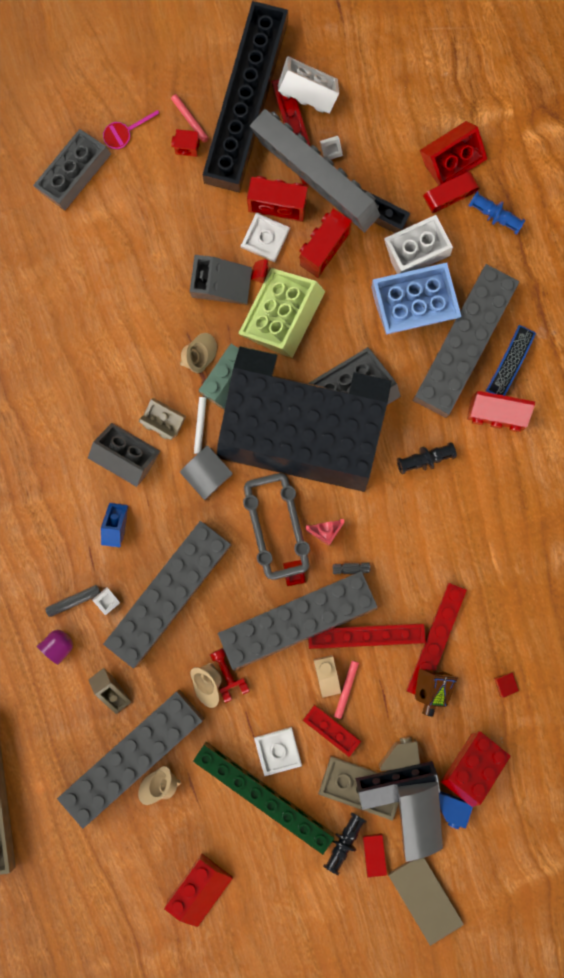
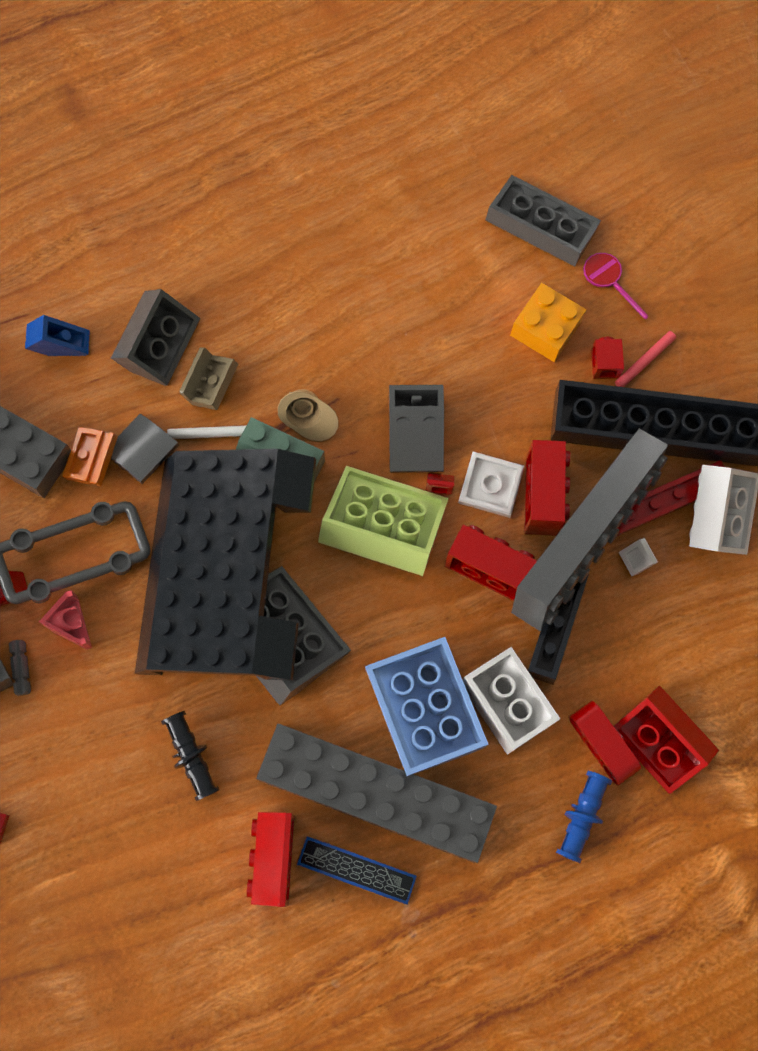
camera: 75 degrees right, 10 degrees down
(154, 178) = (547, 322): none -> light orange brick
(208, 508) = (89, 456): none -> orange plate

